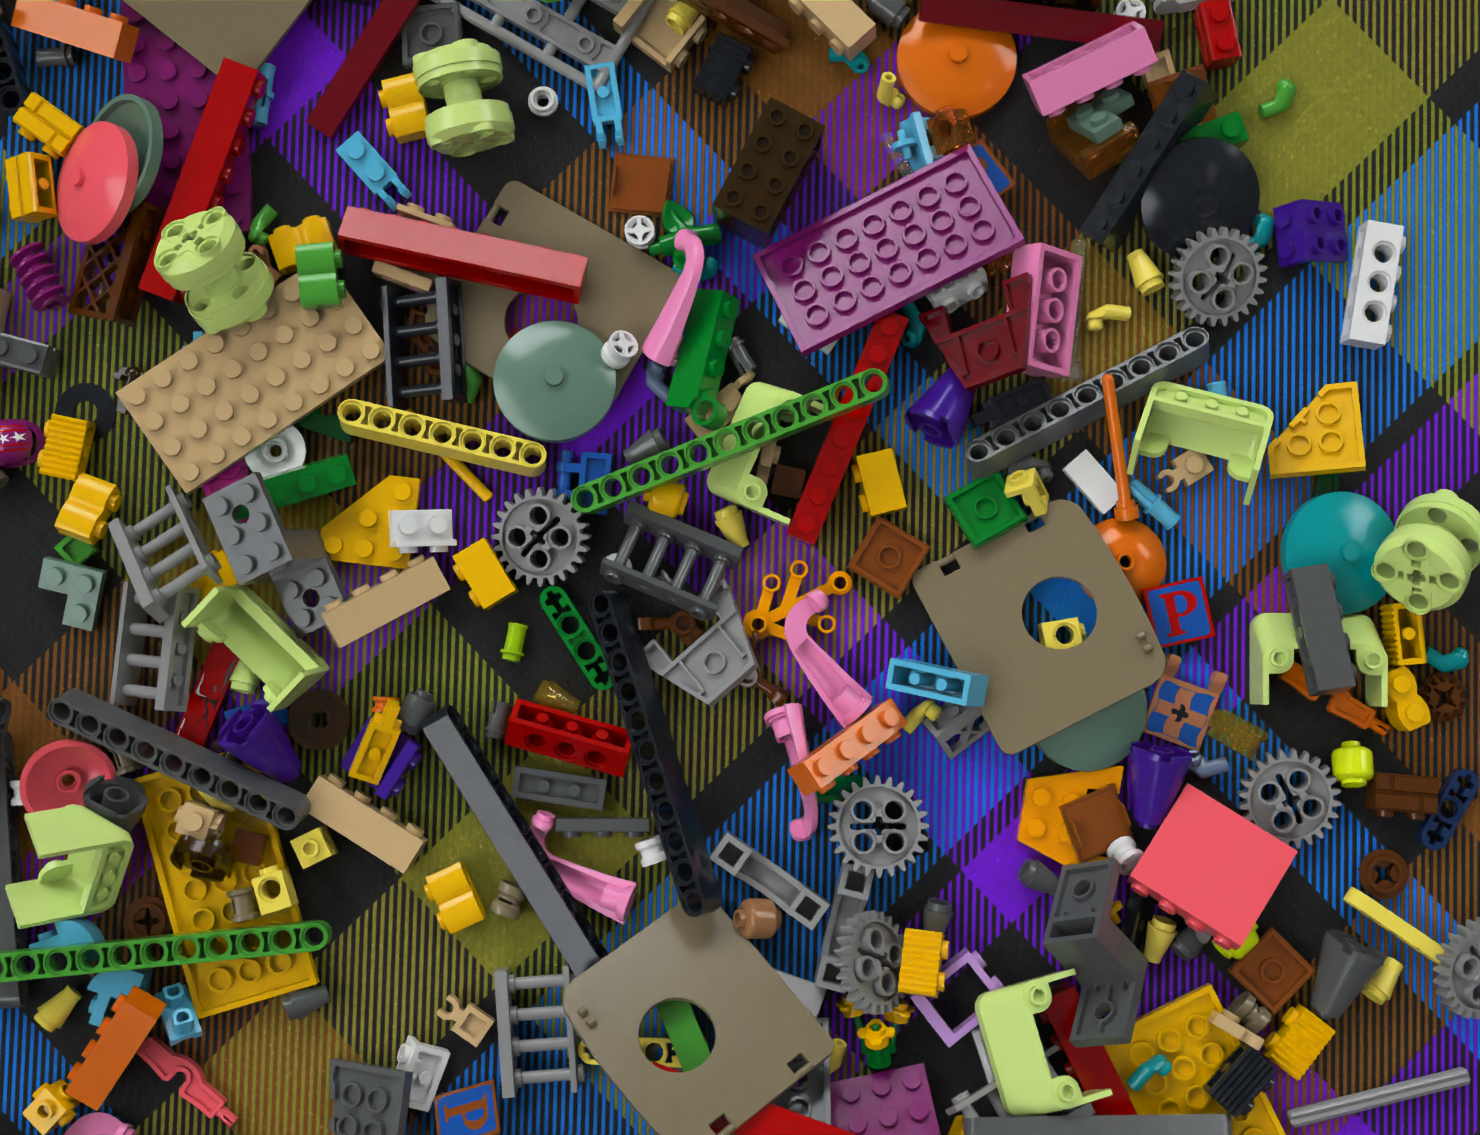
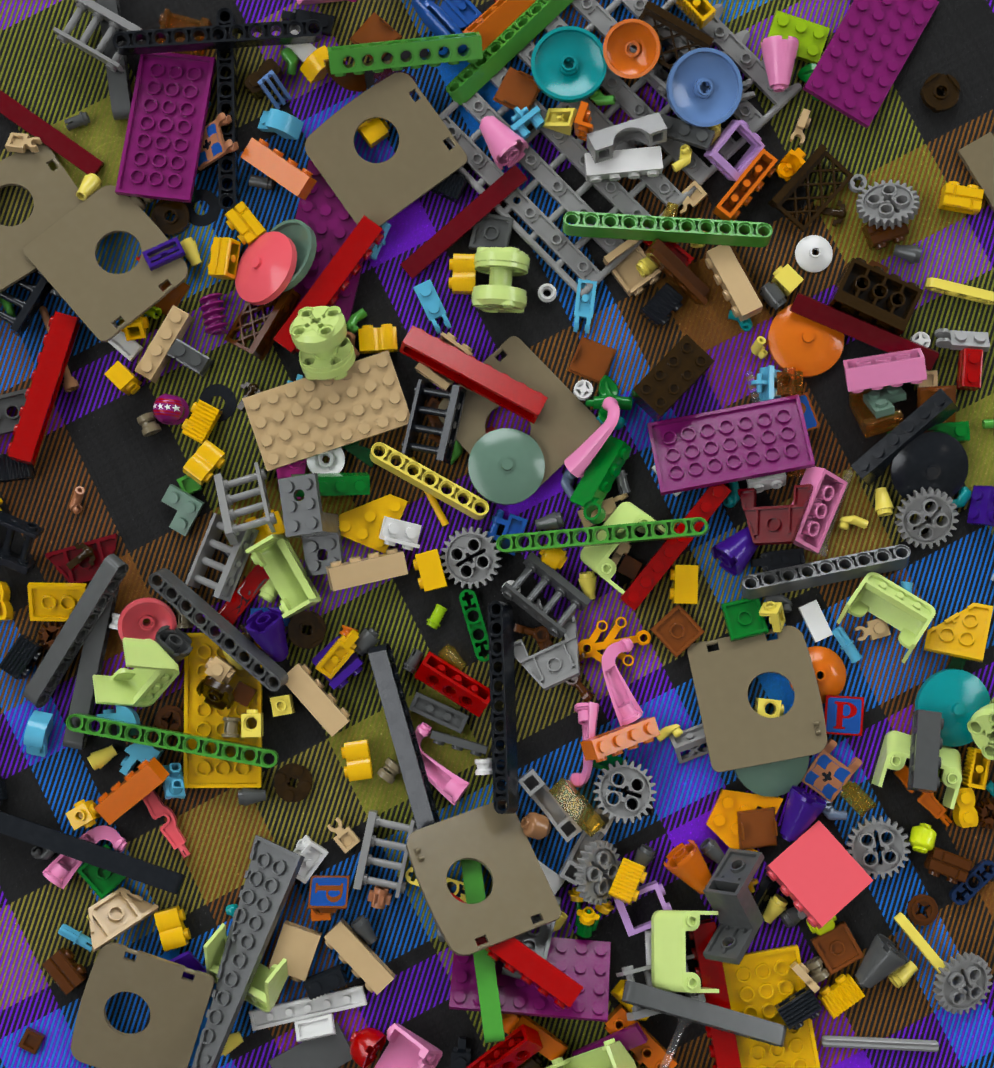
camera: 20 degrees right, 0 degrees up
(319, 275) = (383, 363): bright green brick -> none
(384, 962) = (287, 792): none -> dark brown plate
(548, 1099) = (379, 897): none -> nougat gear
(619, 349) = (550, 458): white wheel -> none
(811, 870) = (577, 806): none -> clear yellow slope
(937, 682) = (685, 715): medium azure brick -> none
(1009, 911) = (689, 865): none -> orange cone
(1126, 507) = (830, 641): orange piece -> none
(1126, 854) = (769, 851): white wheel -> none
(1147, 1069) = (742, 986): teal arm -> none

